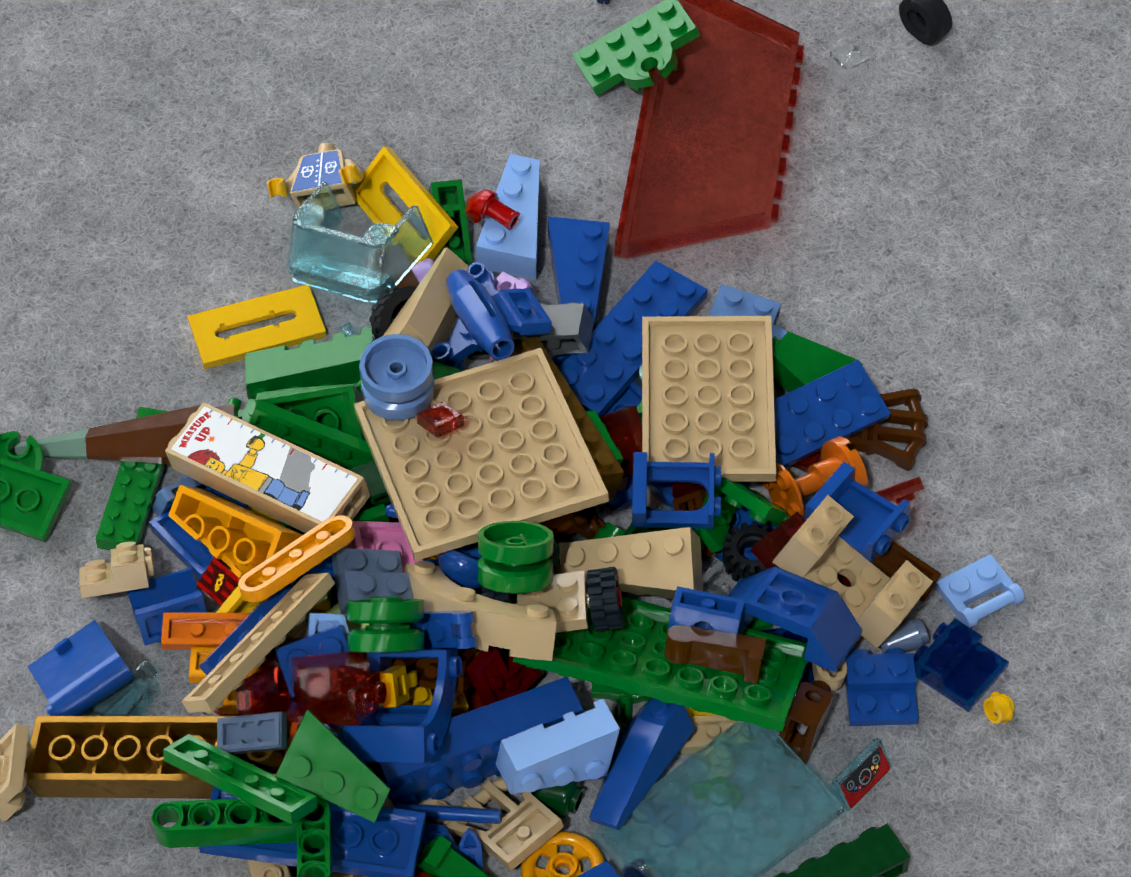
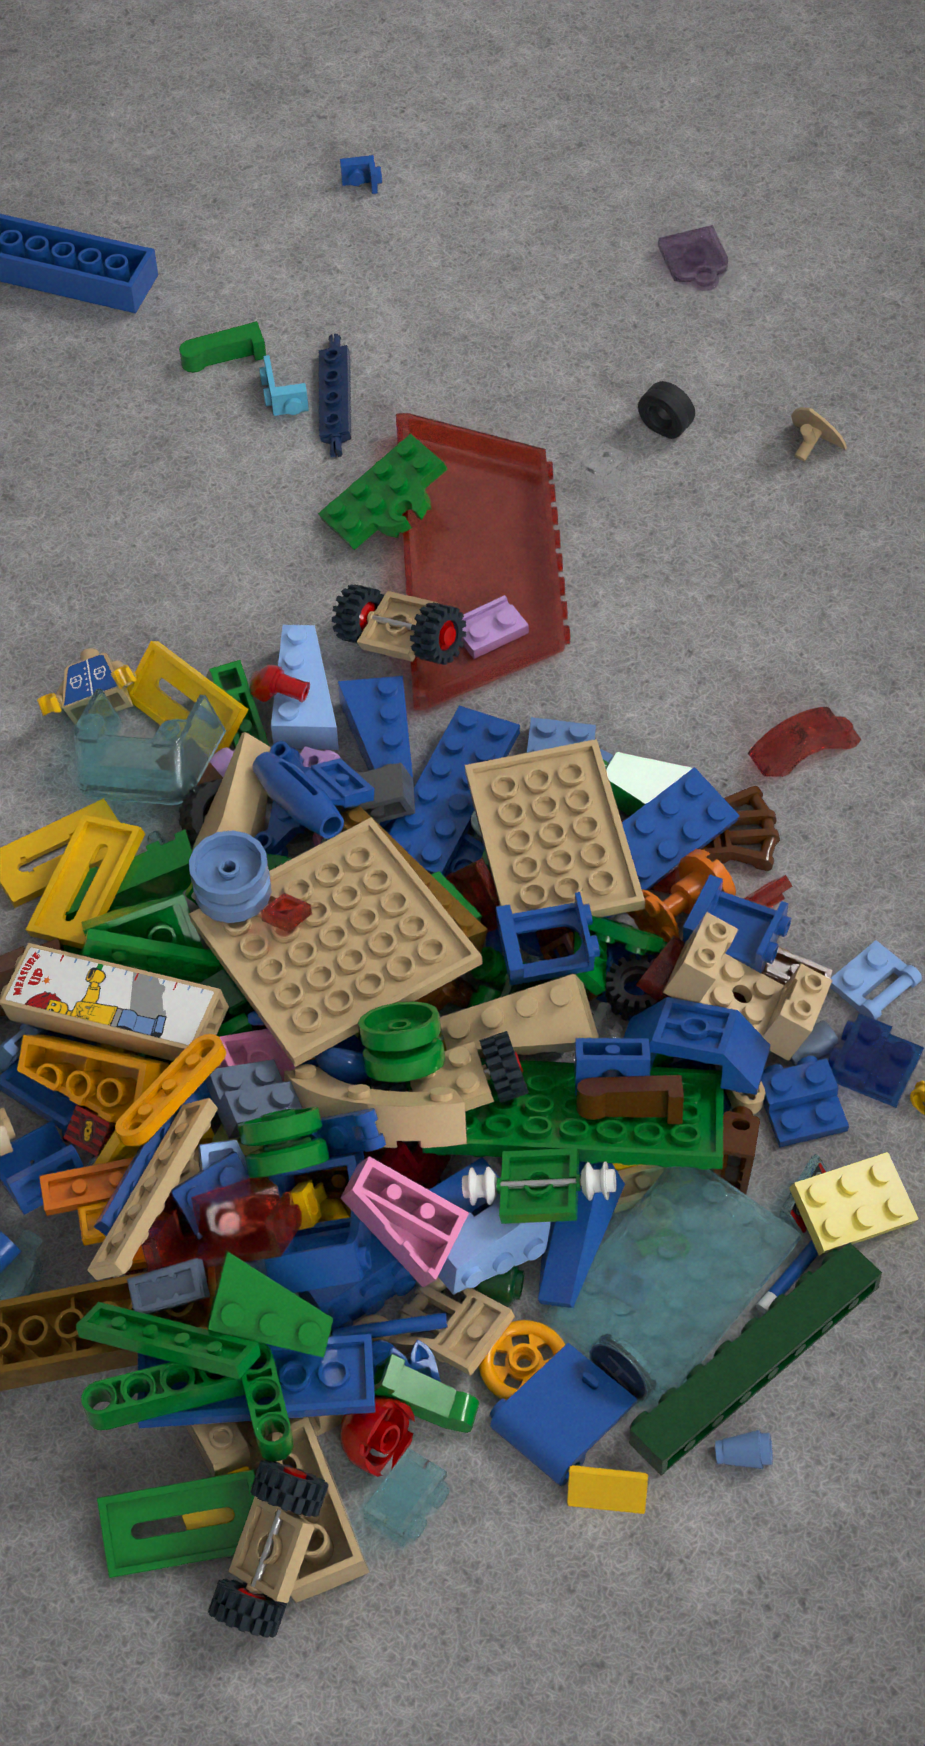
camera: 10 degrees left, 0 degrees up
(281, 319) = (88, 838): none -> yellow piece
(478, 714) = (405, 1218): none -> bright pink wedge
(608, 711) = (539, 1185): none -> green plate
(617, 174) = (399, 625): none -> plate
(620, 507) = (491, 971): none -> green wheel
(705, 192) = (492, 627): none -> lavender plate
(836, 837) = (789, 1276): none -> blue bar
(902, 789) = (853, 1203): none -> light yellow plate
(970, 350) = (800, 737): none -> clear red arch
(1059, 61) = (812, 427): none -> tan shield

